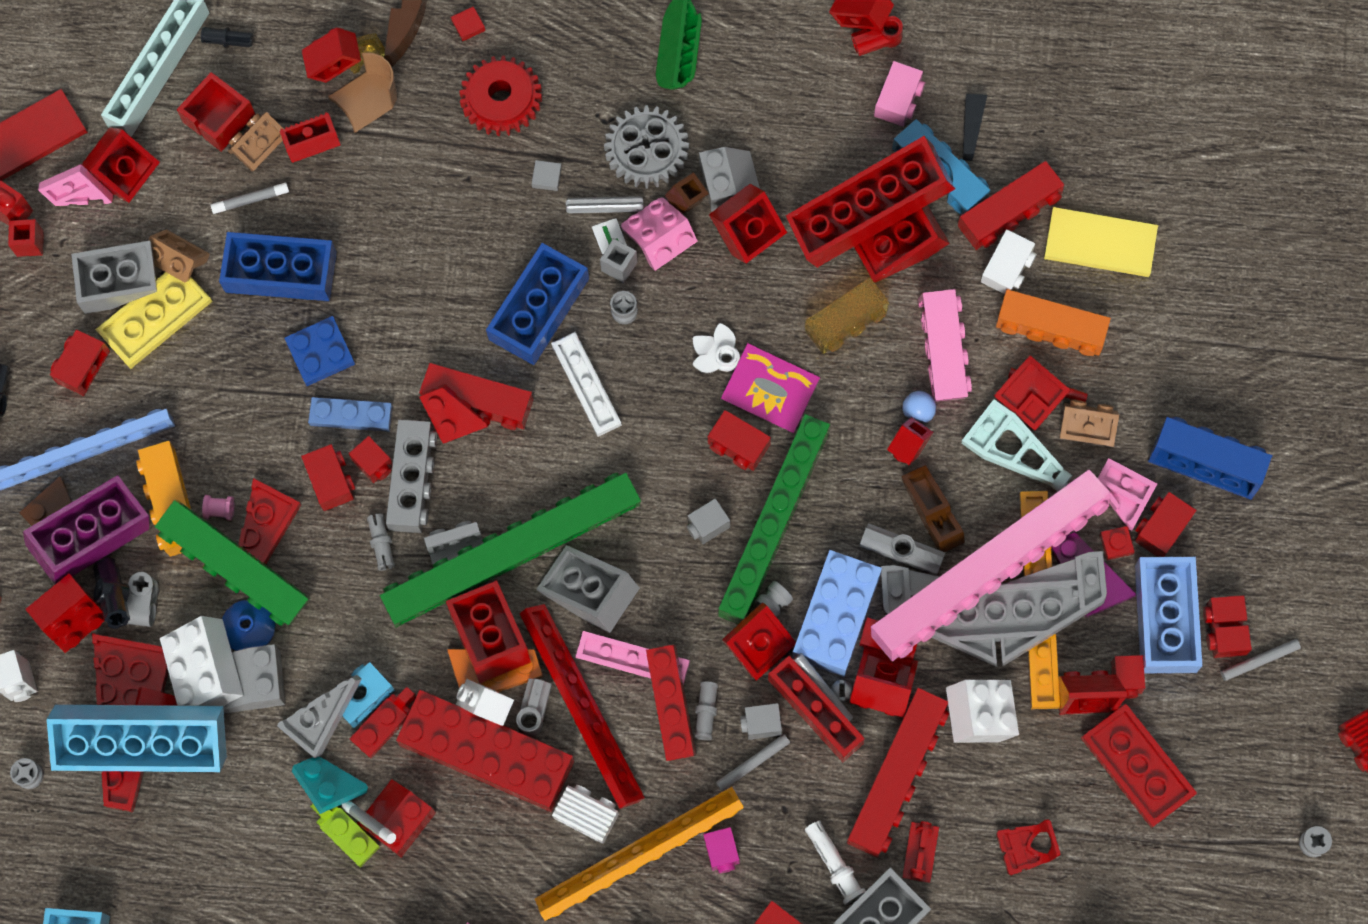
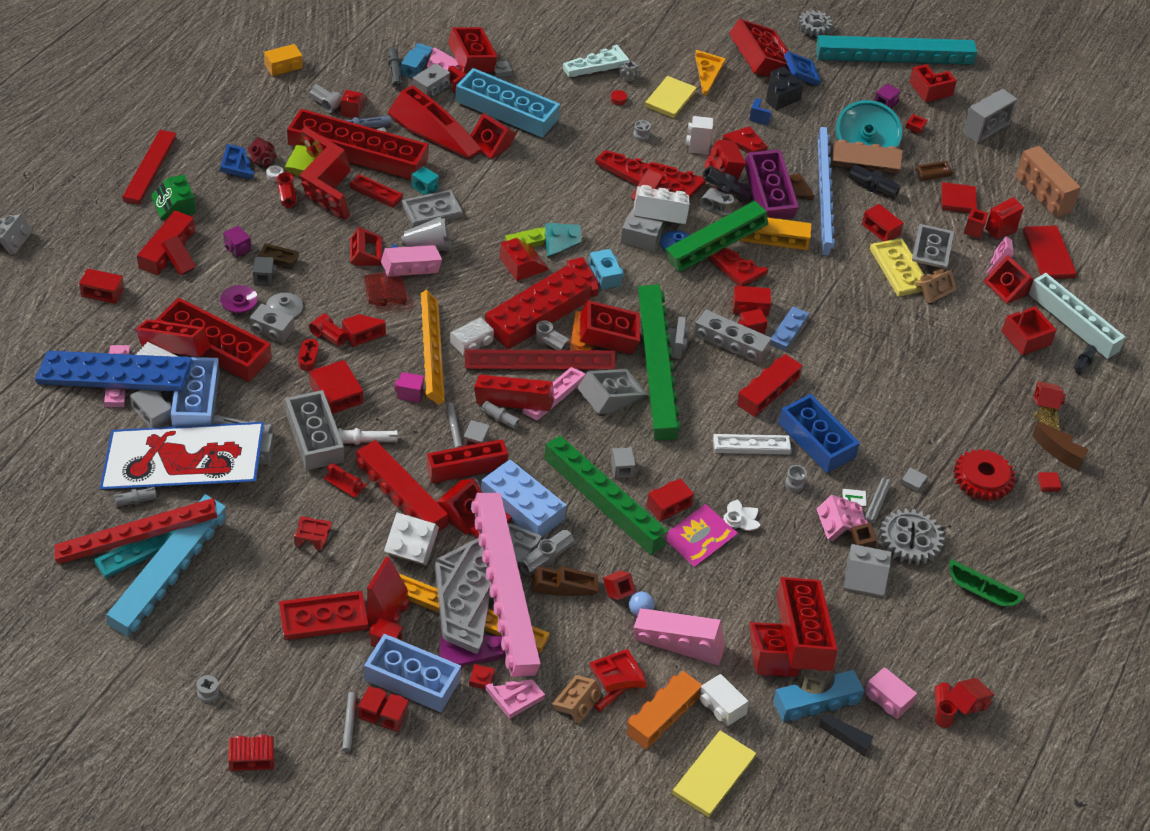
camera: 105 degrees right, 25 degrees down
(136, 738) = (632, 161): medium azure brick -> none
(218, 507) = (759, 247): bright pink bush -> none
(249, 198) = (962, 333): light grey bar -> none
(257, 141) = (1000, 346): medium nougat bracket -> none
(278, 266) = (904, 323): blue brick -> none
(309, 137) = (991, 367): red brick -> none
(316, 722) = (600, 241): light grey wing -> none
(319, 351) = (839, 329): blue plate -> none
(368, 94) = (1014, 413): medium nougat piece -> none
(369, 822) = (529, 240): light grey bar -> none
(380, 542) = (693, 311): light grey pin -> none
(451, 414) = (763, 363): red wing -> none
(484, 702) = (566, 304): white brick -> none
(618, 260) = (830, 483): light grey brick -> none
(748, 223) = (824, 557): red brick -> none
(759, 641) = (528, 449): red plate -> none
(775, 598) = (552, 474): light grey wheel -> none
(817, 679) = (477, 470): light grey bar -> none
(847, 316) = (729, 593): clear yellow brick -> none
(989, 429) = (601, 633): light aqua plate -> none
(1011, 205) = (769, 726): red brick -> none
(1165, 524) = (477, 706): red brick -> none
(1210, 457) = (509, 748): blue brick -> none

